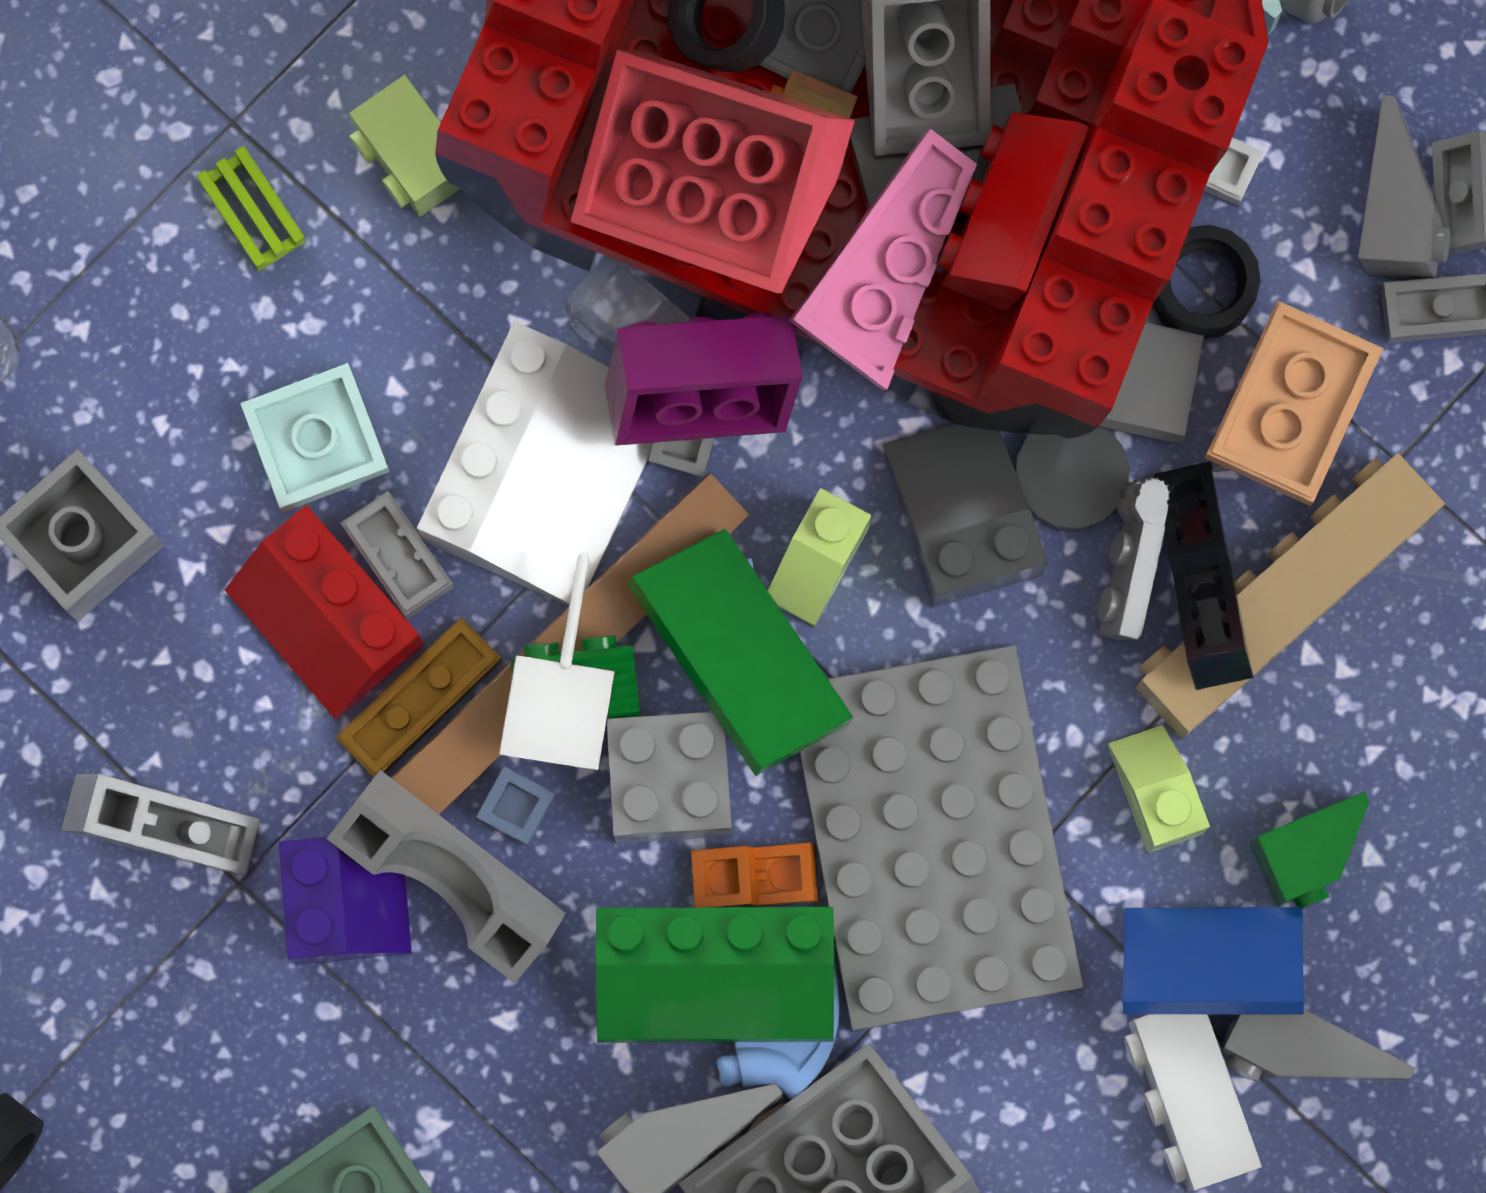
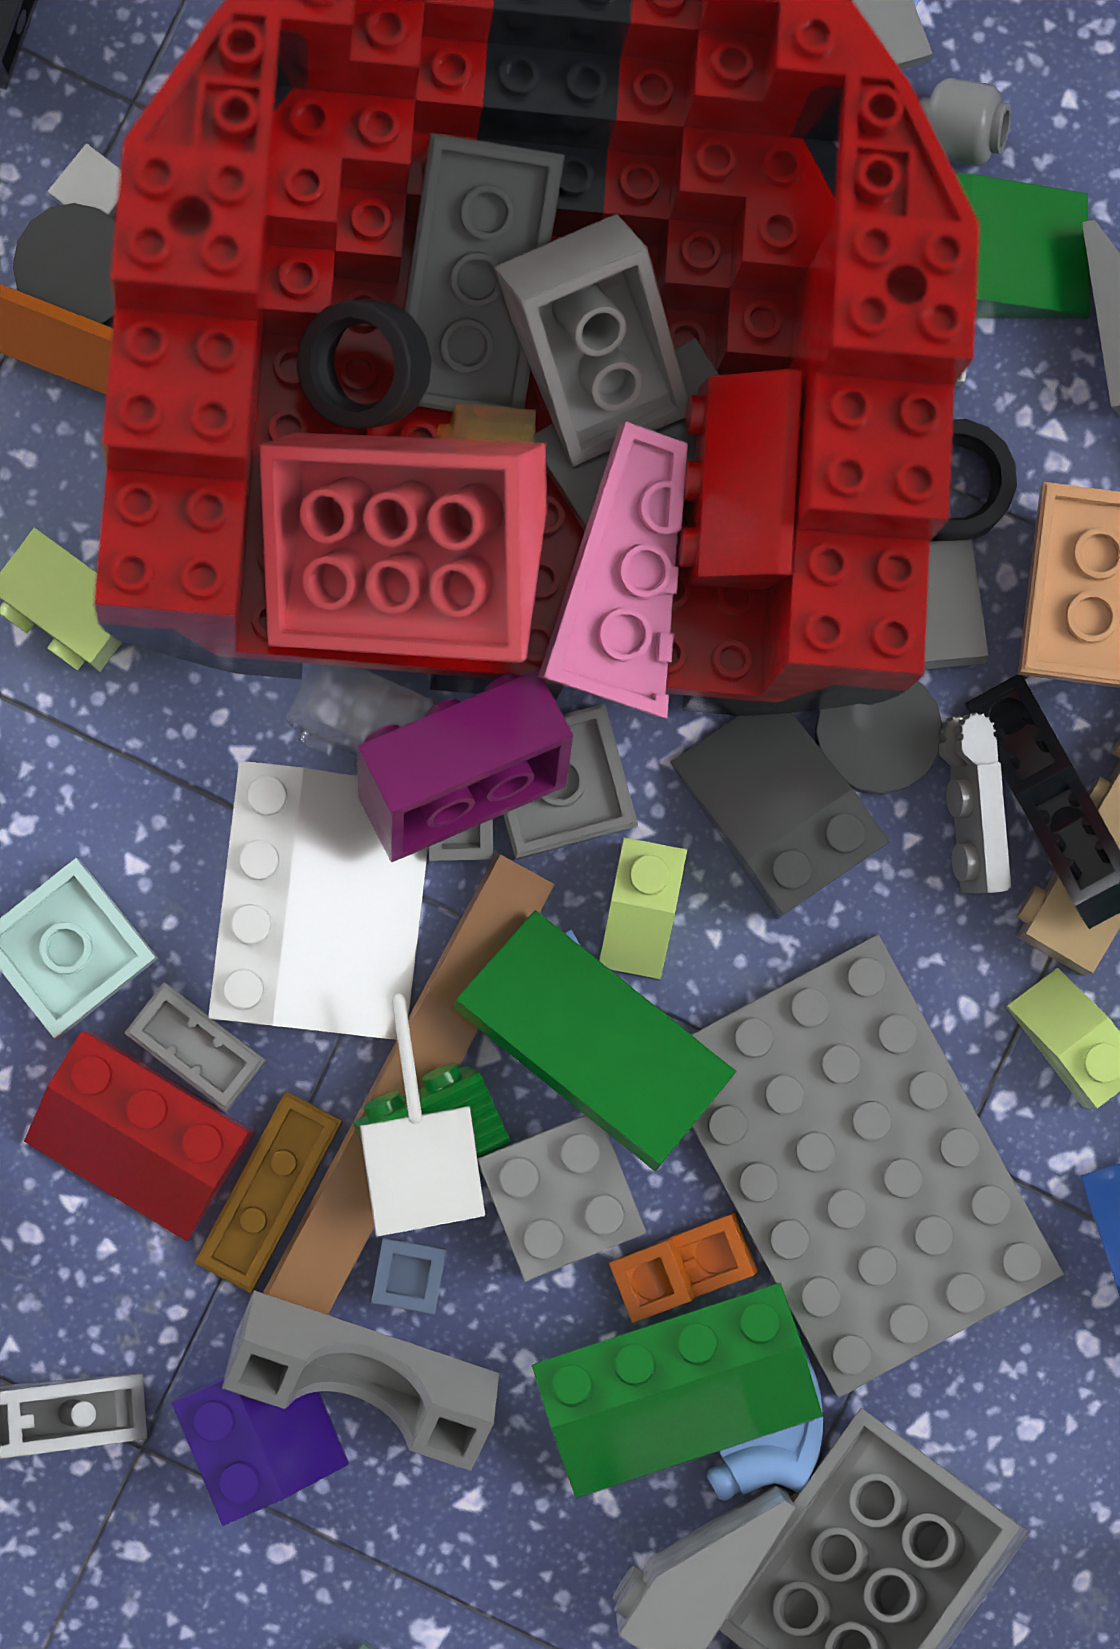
camera: 20 degrees left, 5 degrees up
(800, 457) = (591, 803): none -> light grey tile
(1315, 102) = (1029, 249): none -> green slope

